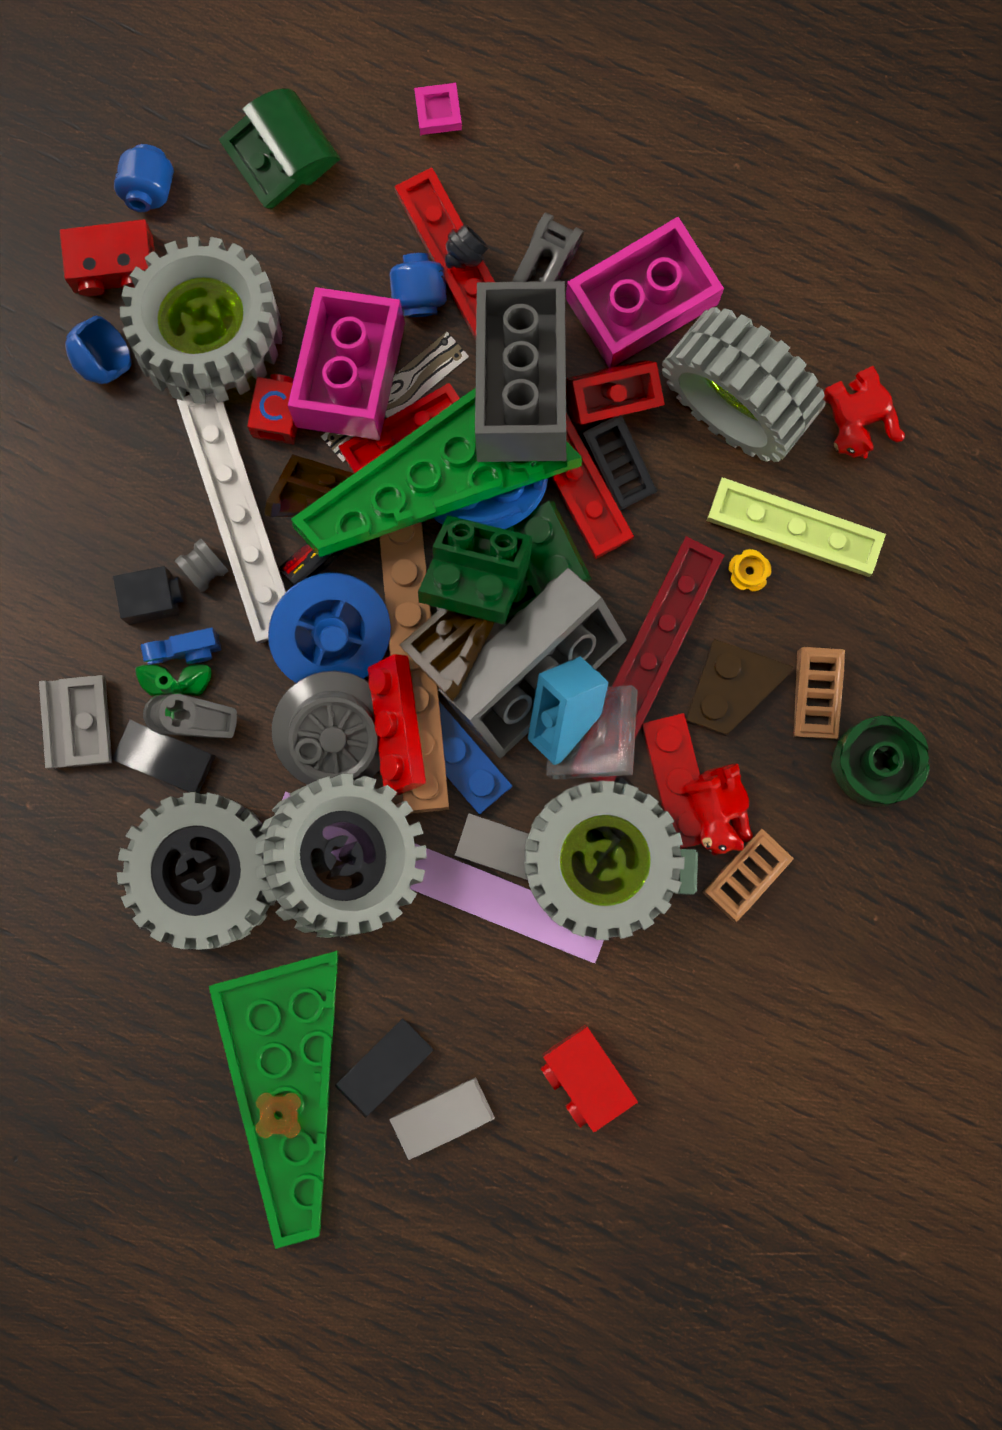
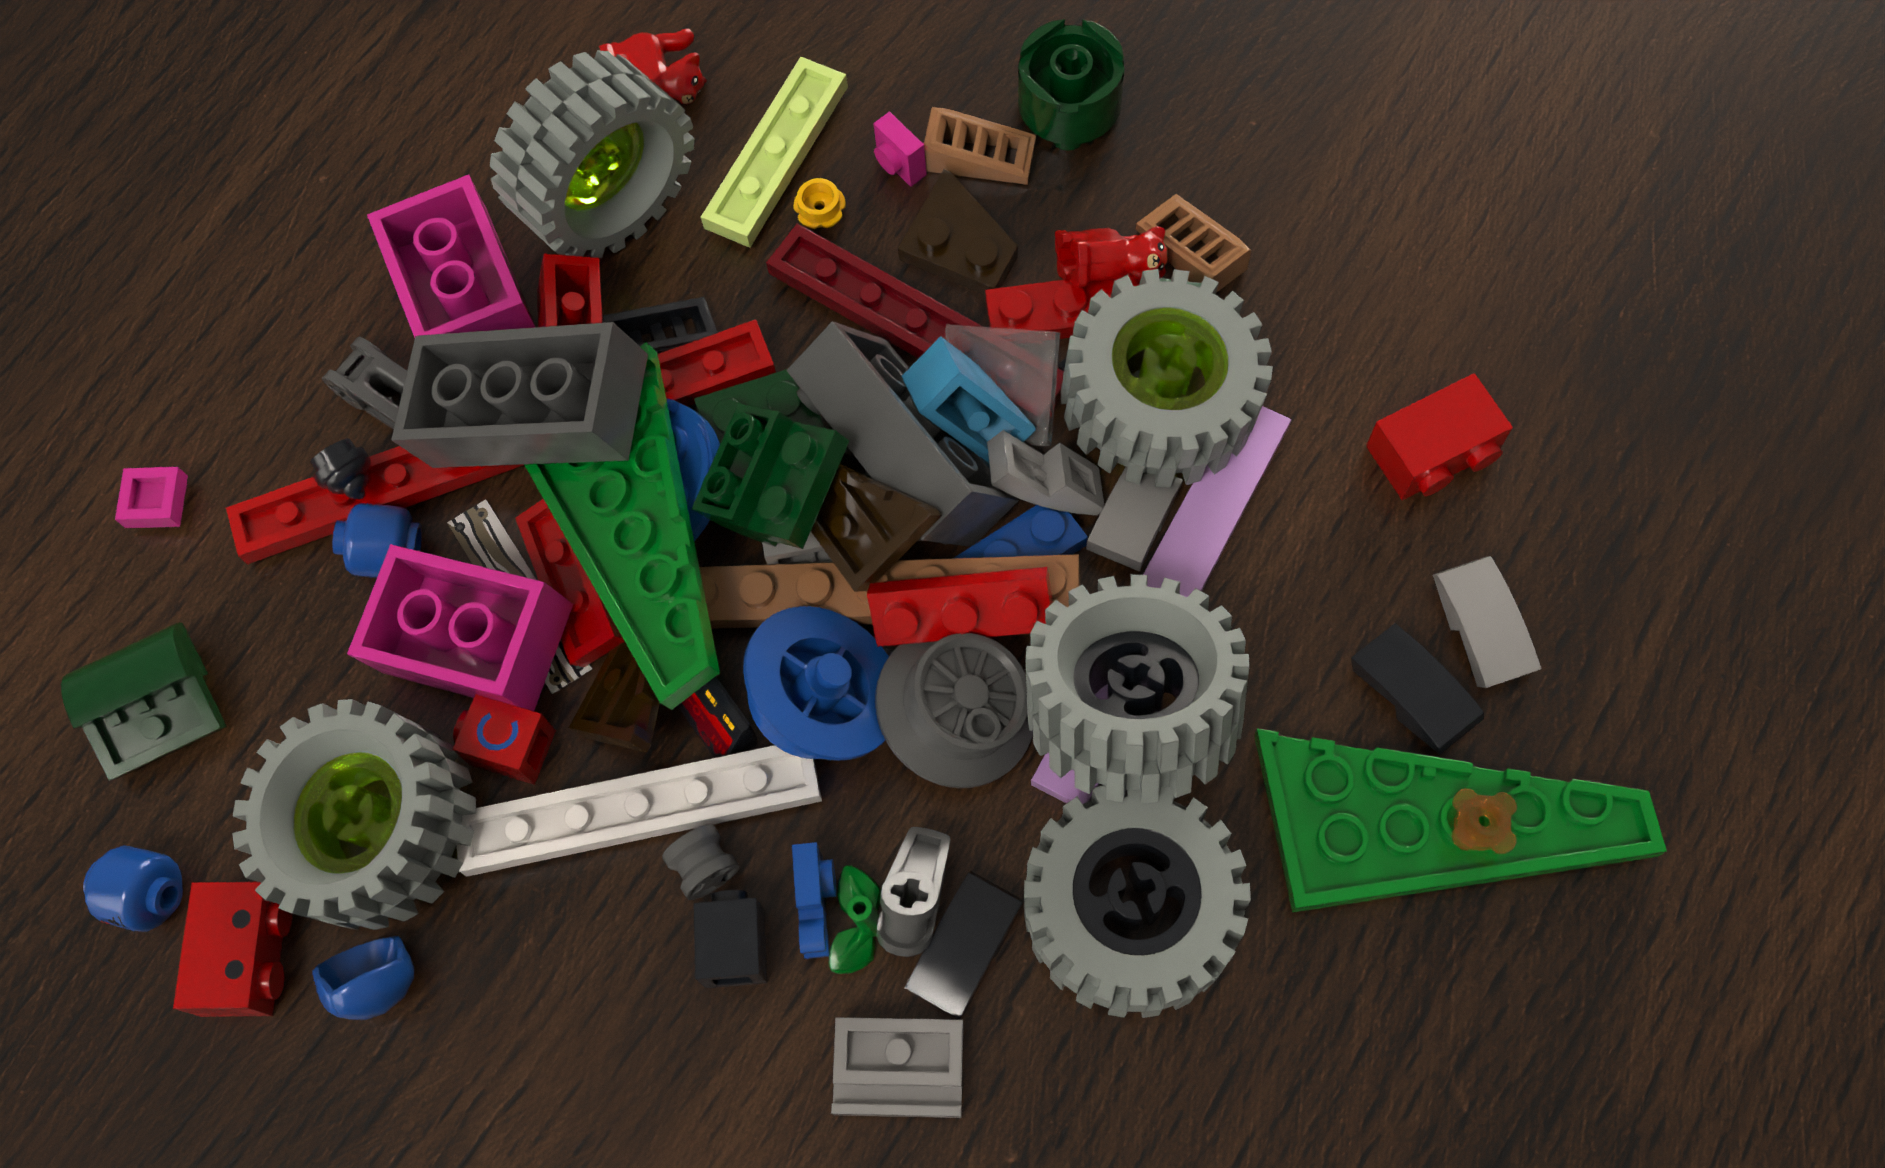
camera: 75 degrees left, 15 degrees down
(519, 777) = (1051, 480): none -> light grey slope
(803, 626) = (899, 150): none -> dark pink plate

